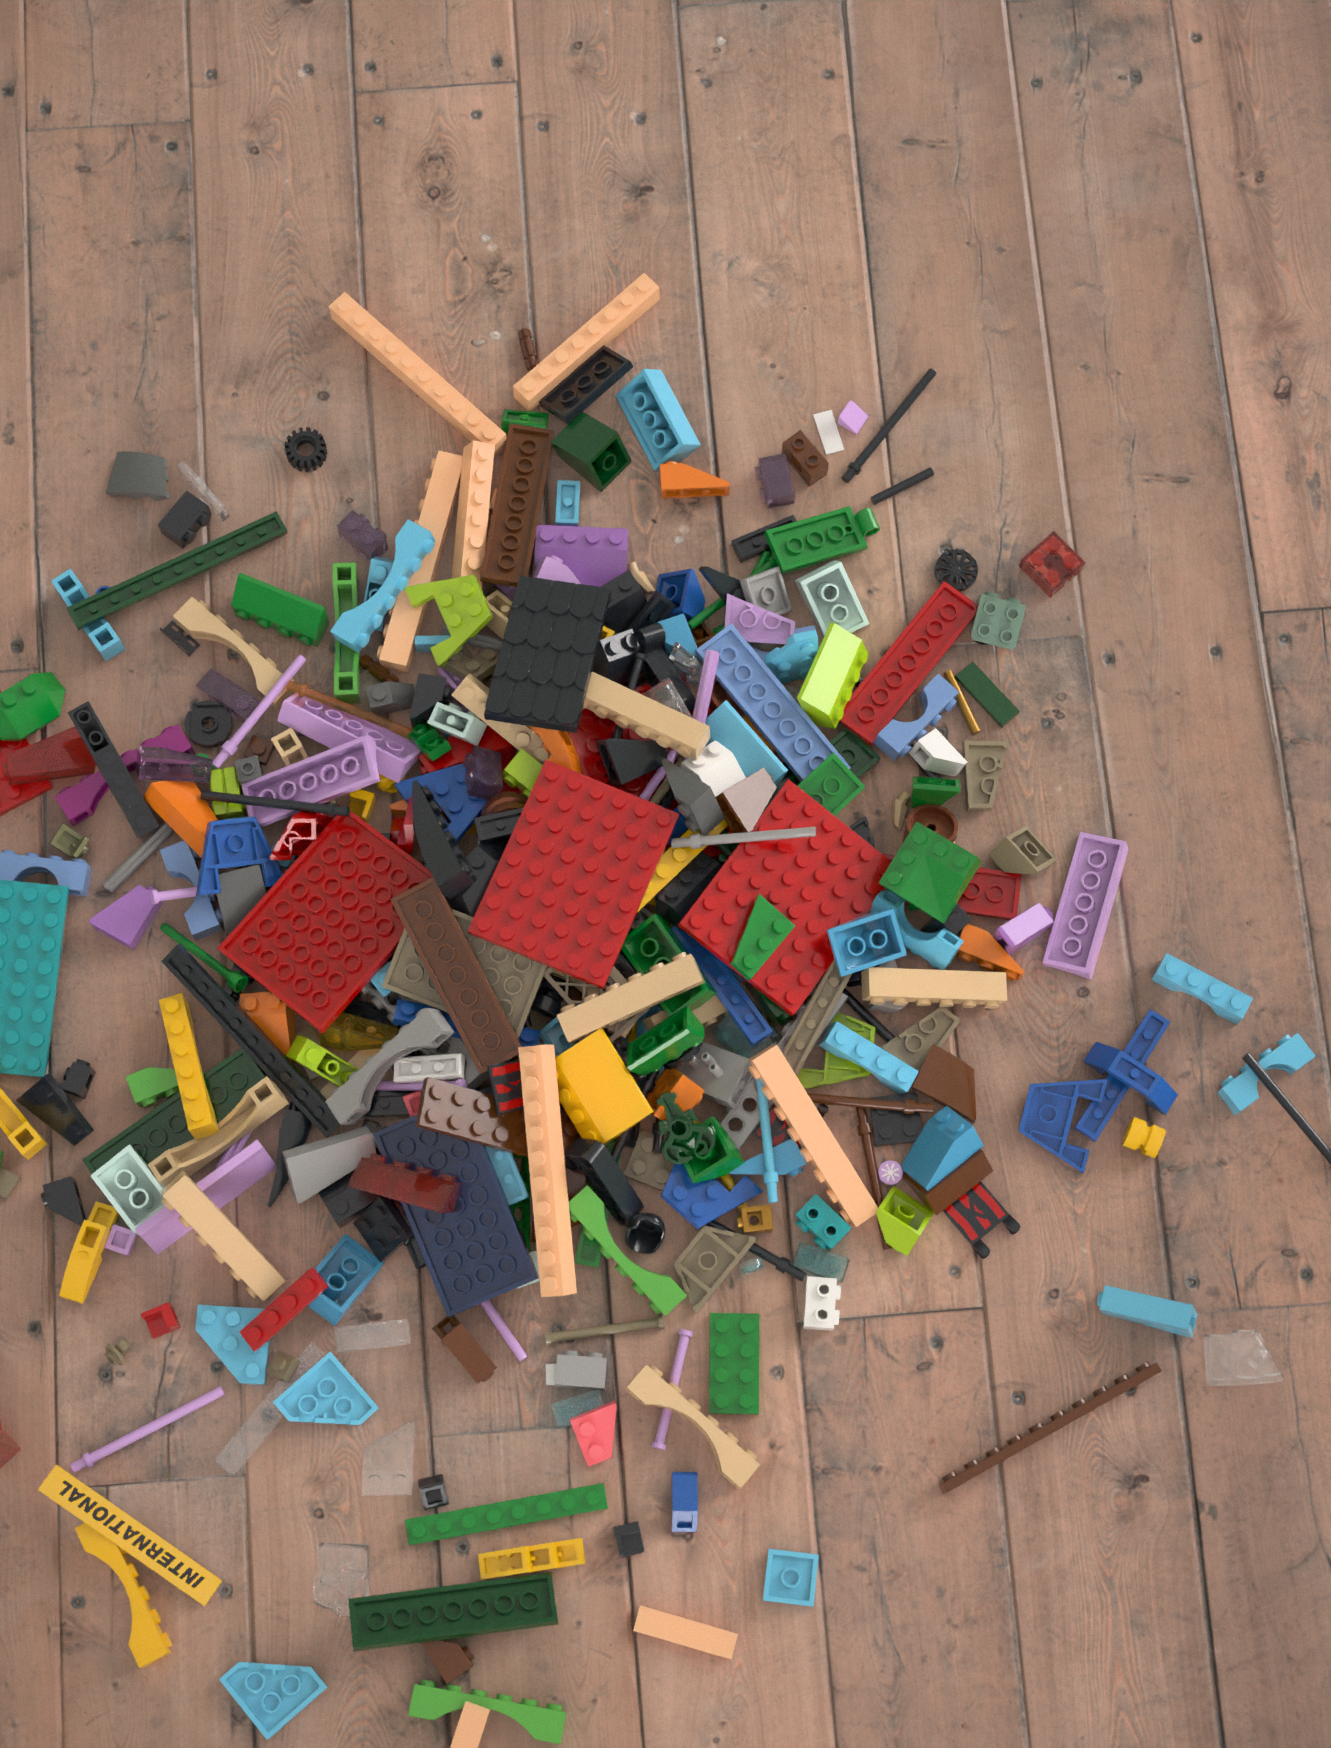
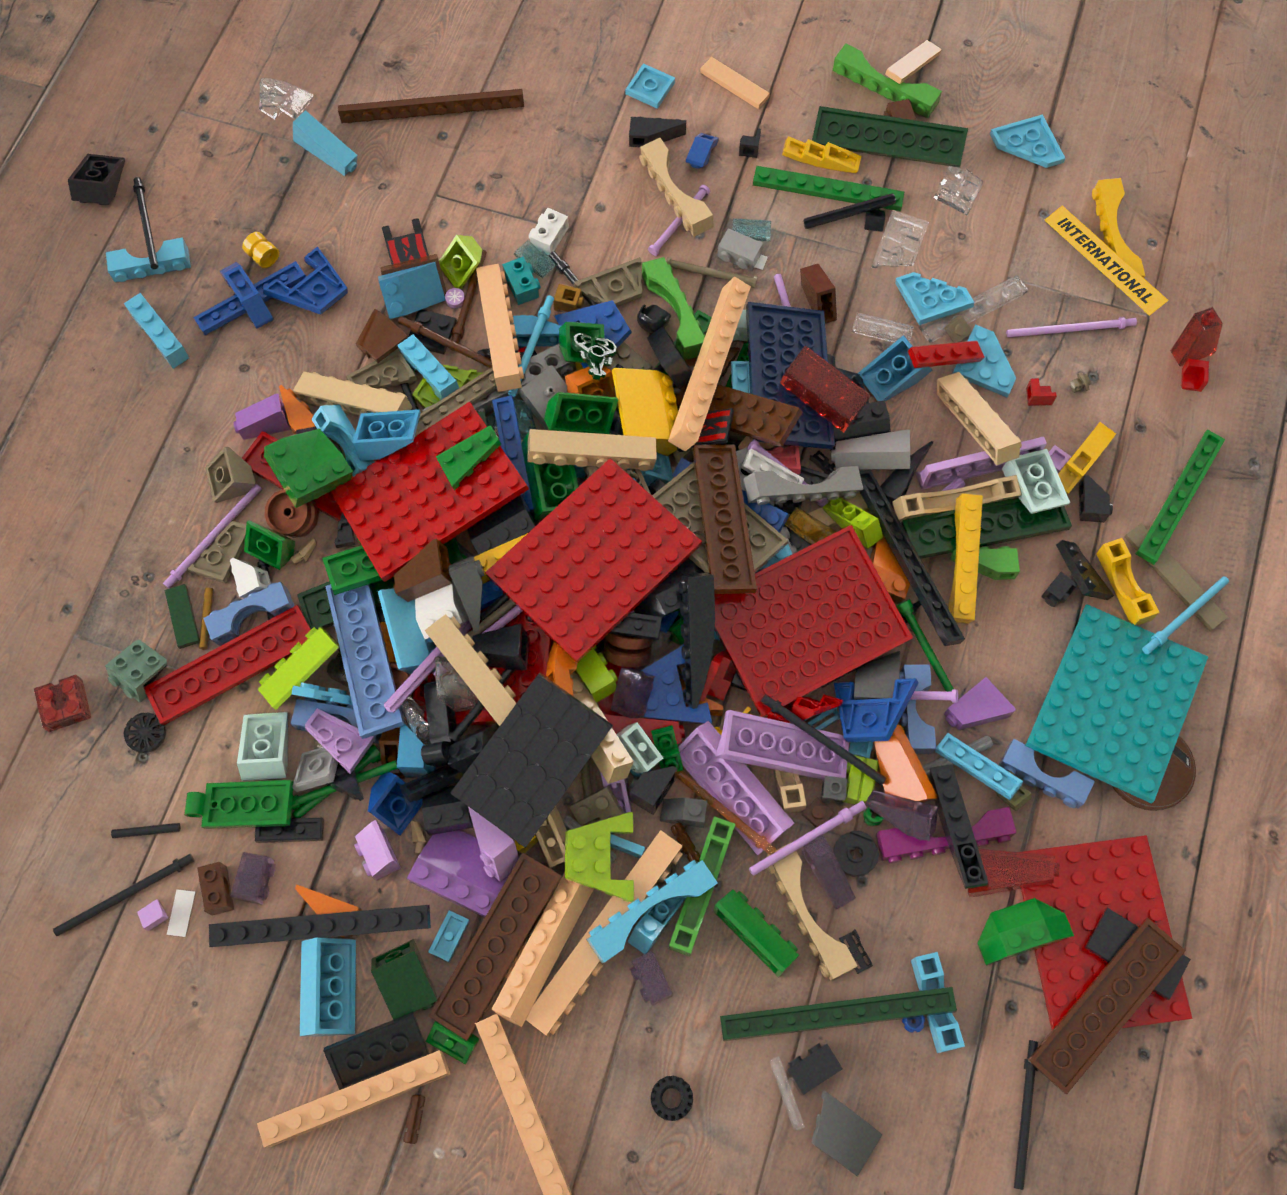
camera: 155 degrees left, 5 degrees down
(110, 849) = (979, 766): none -> medium azure tile
(466, 1483) = (849, 211): none -> black axle
(596, 1432) = (745, 209): coral wing -> none
(669, 546) = (376, 851): none -> lavender slope
(687, 458) = (320, 926): none -> black plate
(697, 841) = (481, 553): light grey bar -> none
(734, 1364) = (627, 221): green plate -> none
(751, 1266) = (585, 270): clear light blue tile -> none
(761, 1501) = (649, 129): none -> black slope
(1017, 732) = (176, 575): none -> lavender bar
(1086, 904) = (202, 424): lavender arch -> none

